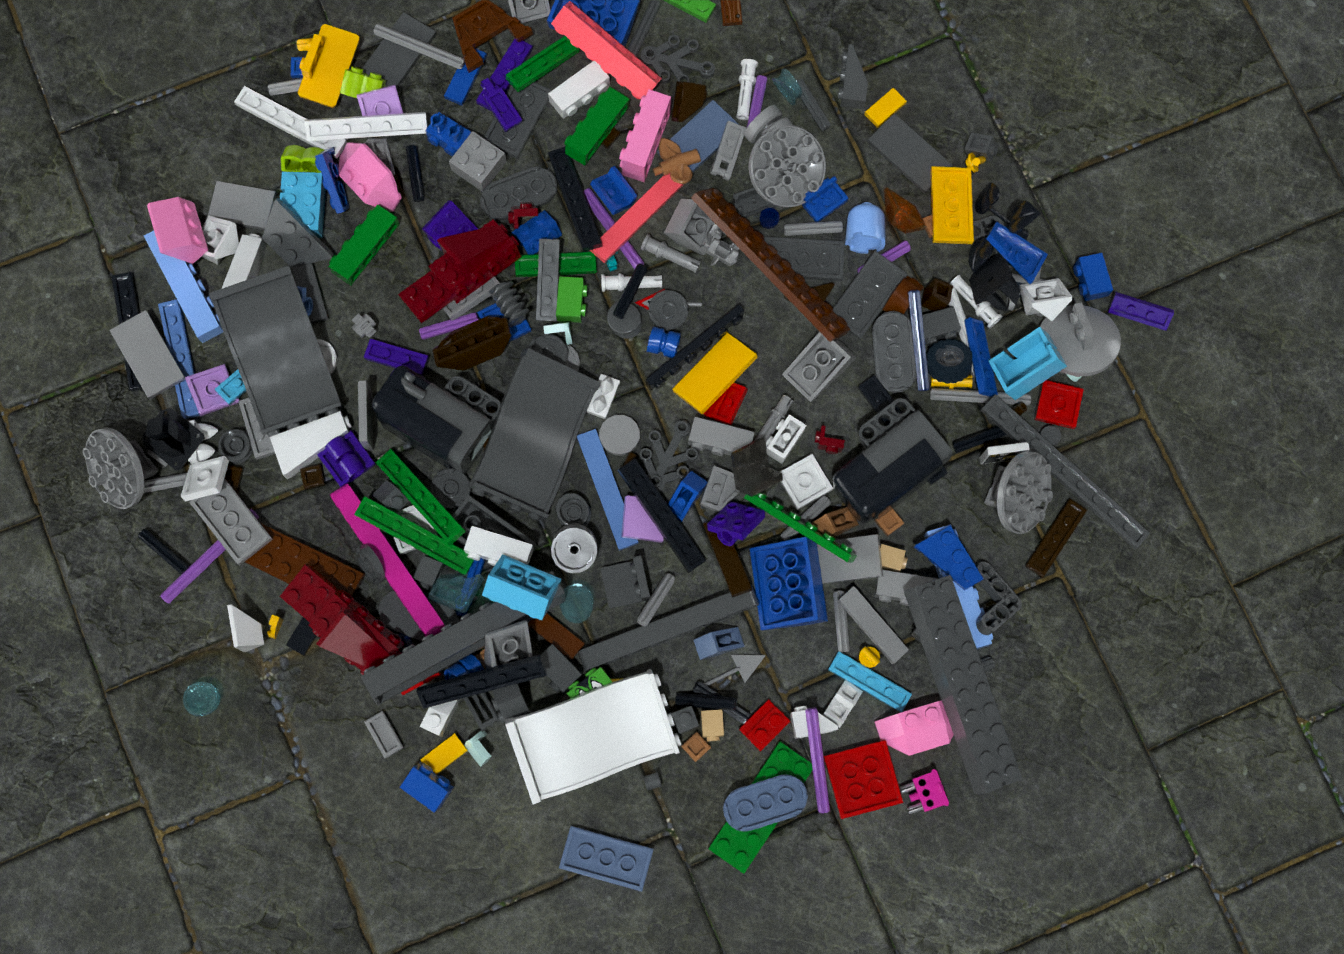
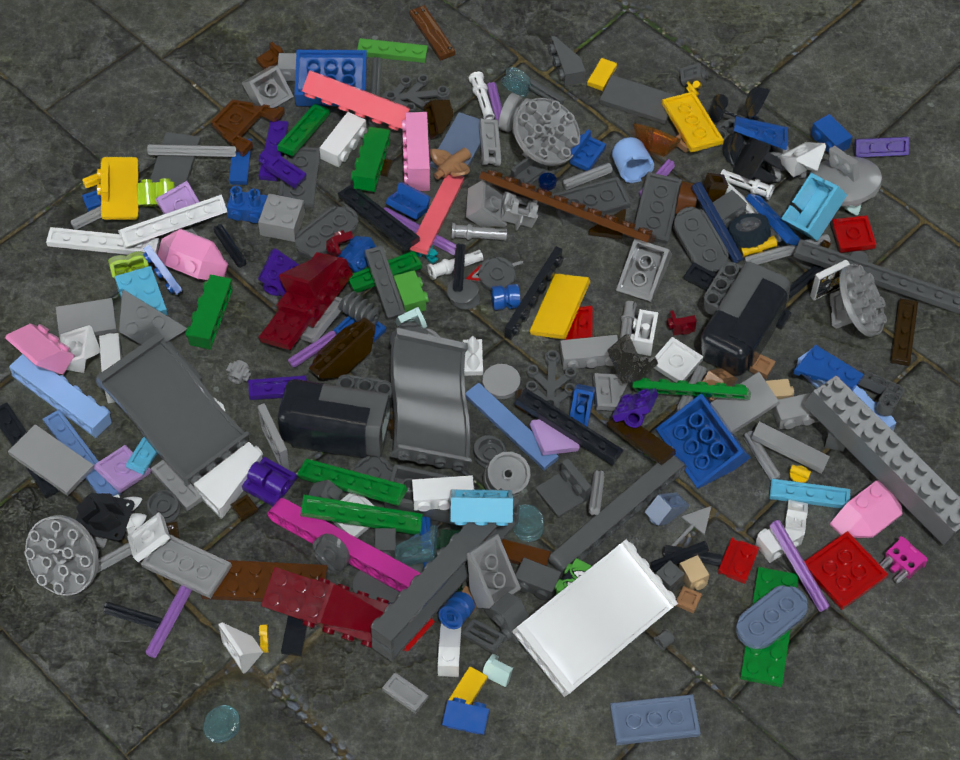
camera: 20 degrees left, 20 degrees down
(410, 387) = (310, 389): dark grey arm -> none
(481, 681) = (478, 603): black tile -> none

